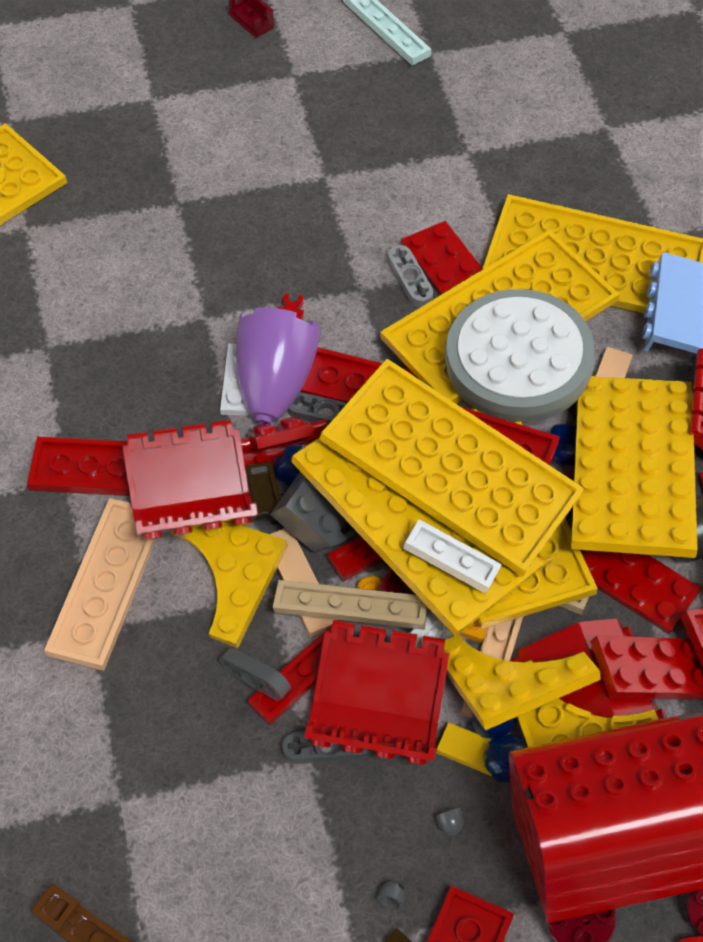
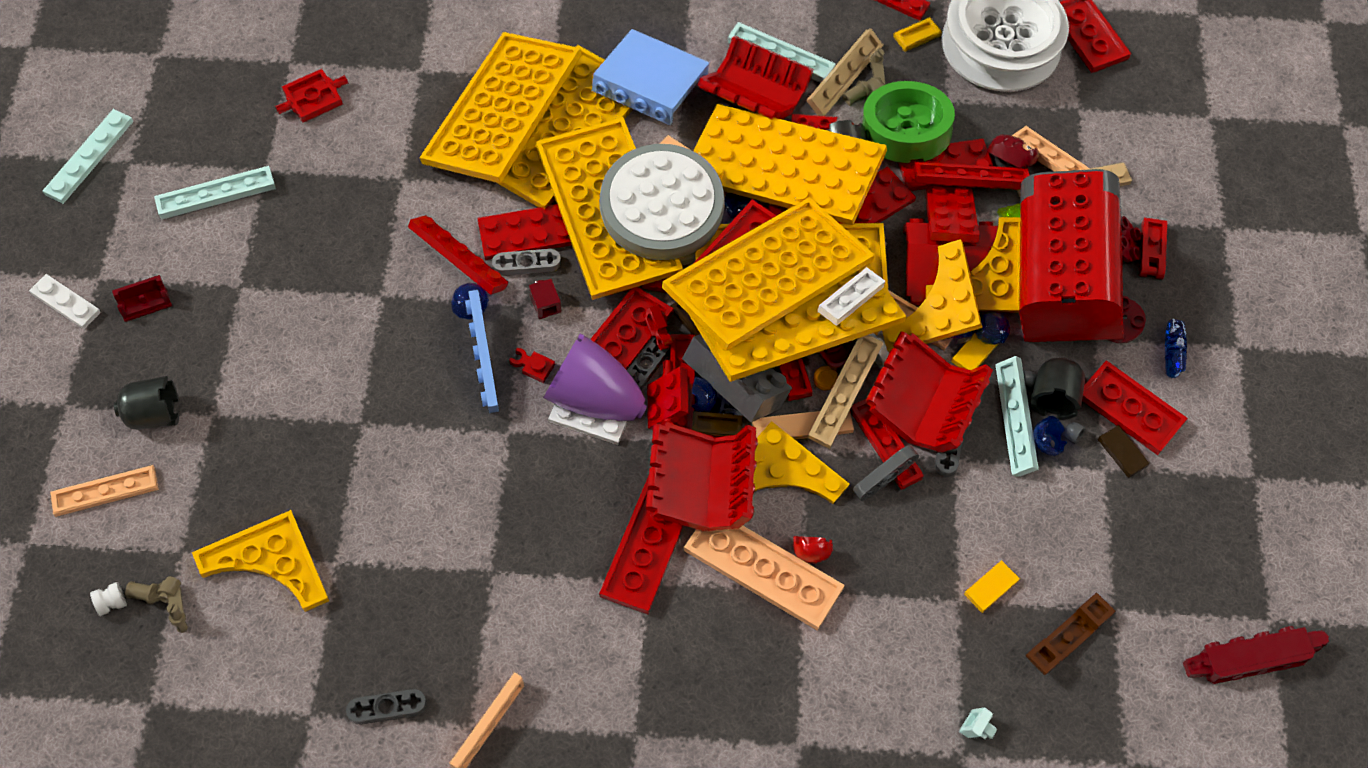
camera: 75 degrees left, 5 degrees up
(55, 54) = (104, 490): none -> light nougat tile
(137, 614) = (812, 548): none -> red hair
(140, 48) = (148, 404): none -> pearl dark grey cylinder
(146, 834) = (991, 586): none -> yellow tile
(280, 262) = (481, 351): none -> light blue plate
(344, 242) = (461, 294): none -> clear blue hair
(365, 853) = (1048, 430): none -> clear blue hair
(368, 300) = (545, 298): none -> dark red brick
(389, 815) = (1016, 417): none -> light aqua plate
(393, 218) = (458, 254): none -> red plate
(445, 853) = (1058, 388): none -> pearl dark grey cylinder
(530, 56) = (312, 95): none -> red plate
(590, 196) = (501, 107): none -> yellow plate

